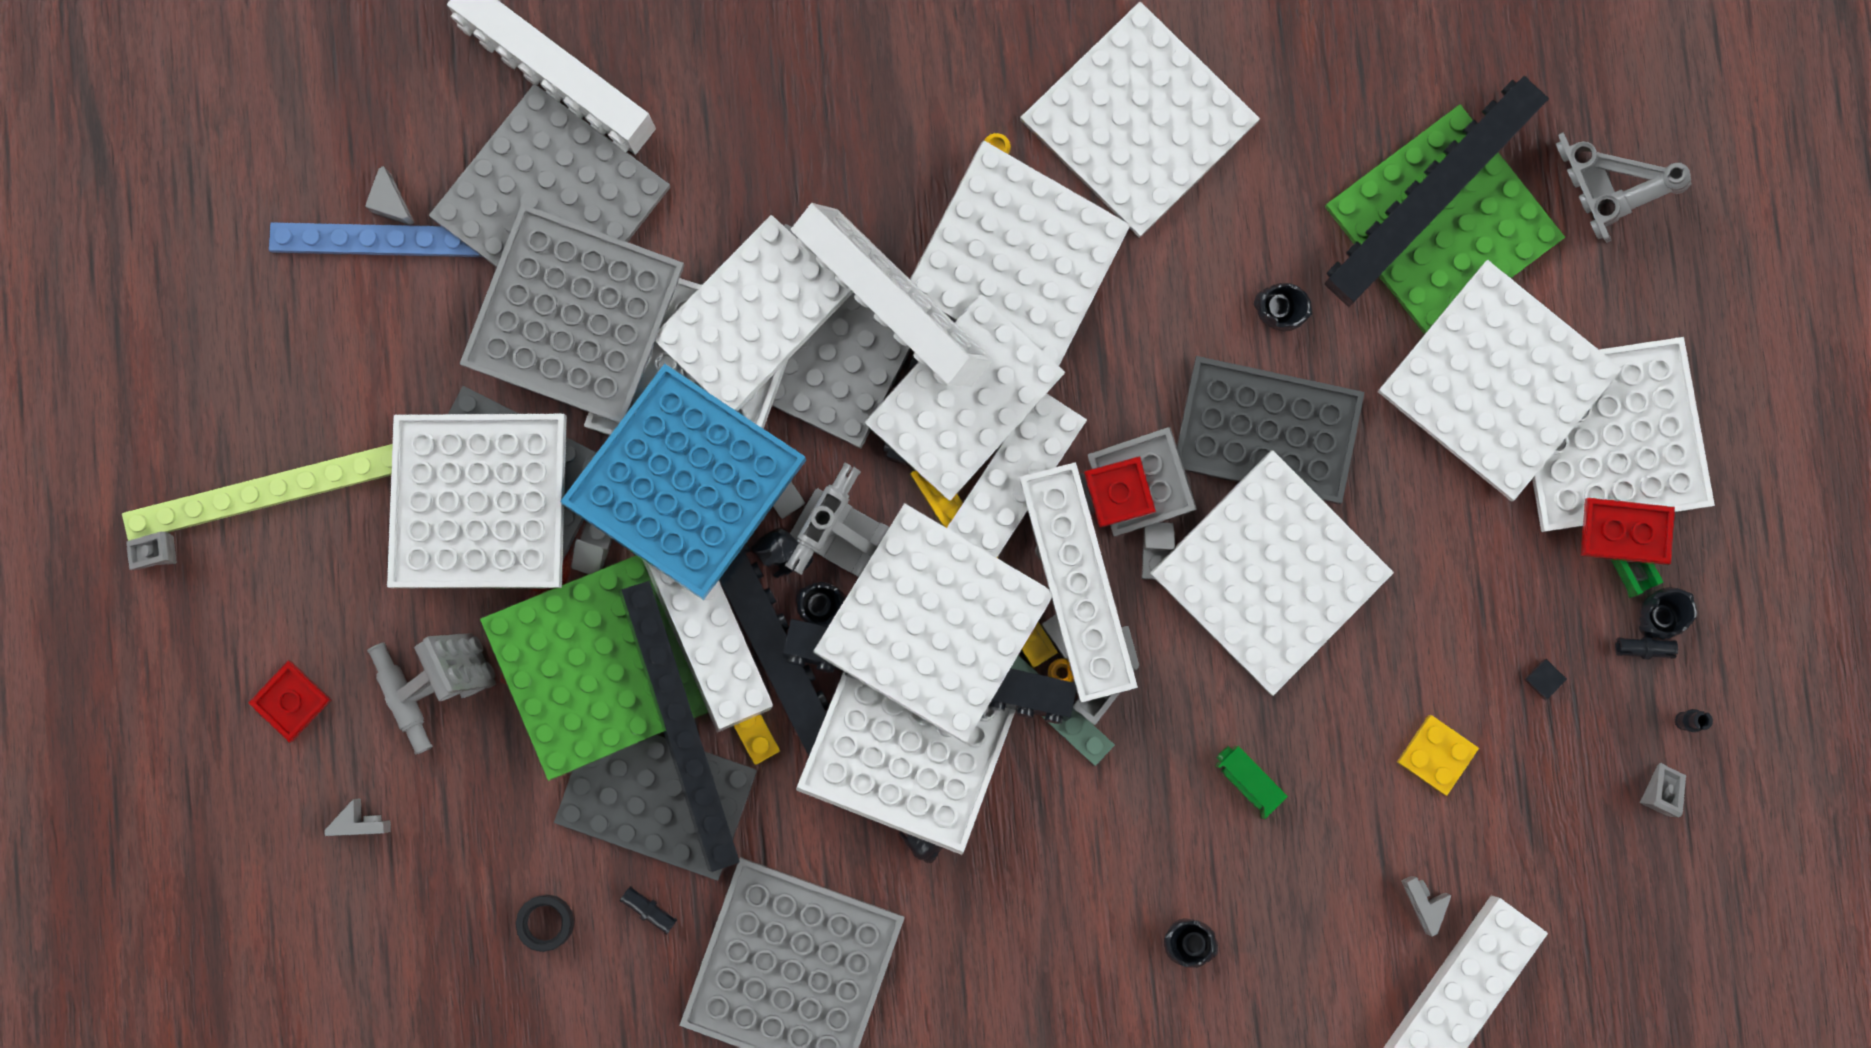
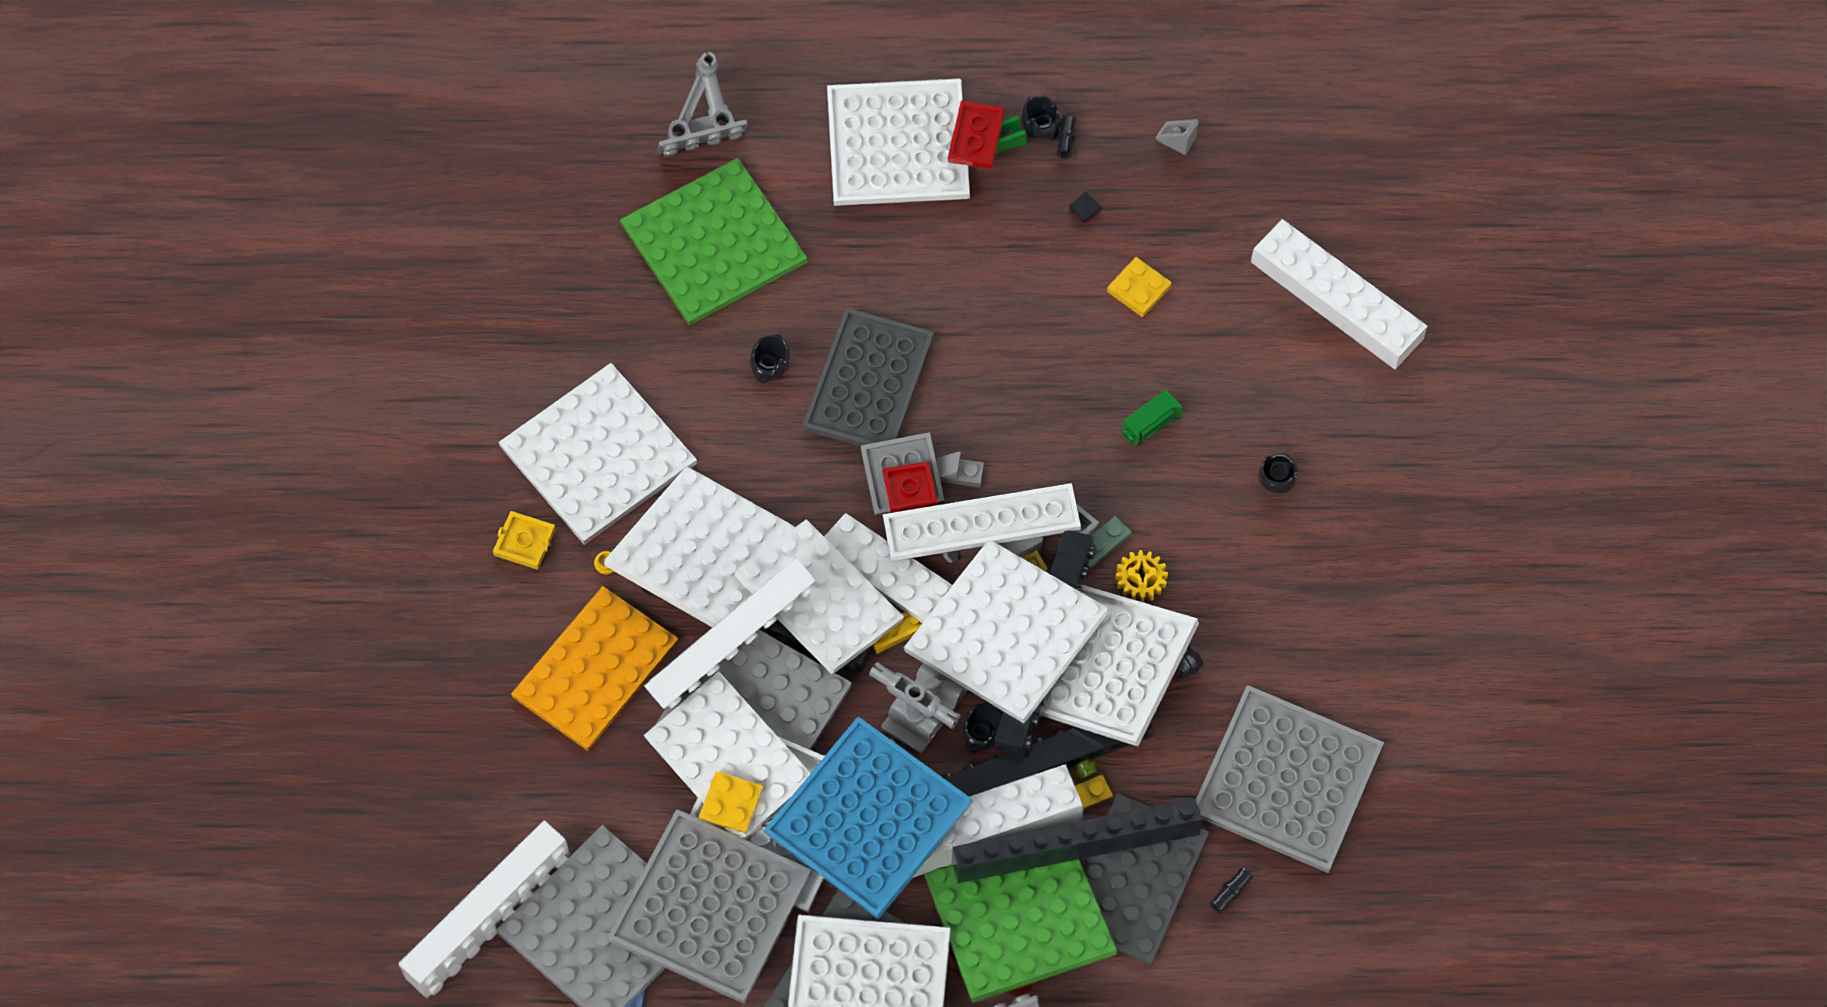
camera: 85 degrees left, 20 degrees down
(523, 929) = (1241, 957): black tyre -> none
(591, 550) = (914, 911): light grey slope -> none
(691, 322) = (731, 802): none -> yellow plate
(776, 549) = (936, 751): black hair -> none
(782, 731) = (1085, 769): none -> clear neon green plate
(863, 152) = (595, 668): none -> light orange plate
(1015, 48) = (524, 540): none -> yellow plate
(1037, 795) = (1130, 579): none -> yellow gear
(1060, 663) = (1052, 544): light orange plate -> none
(1272, 572) = (985, 387): white plate -> none
(1428, 911) = (1260, 303): light grey slope -> none
(1436, 191) = (691, 239): black brick -> none
(1499, 380) = (847, 212): white plate -> none
(1693, 720) = (1125, 107): black pin -> none

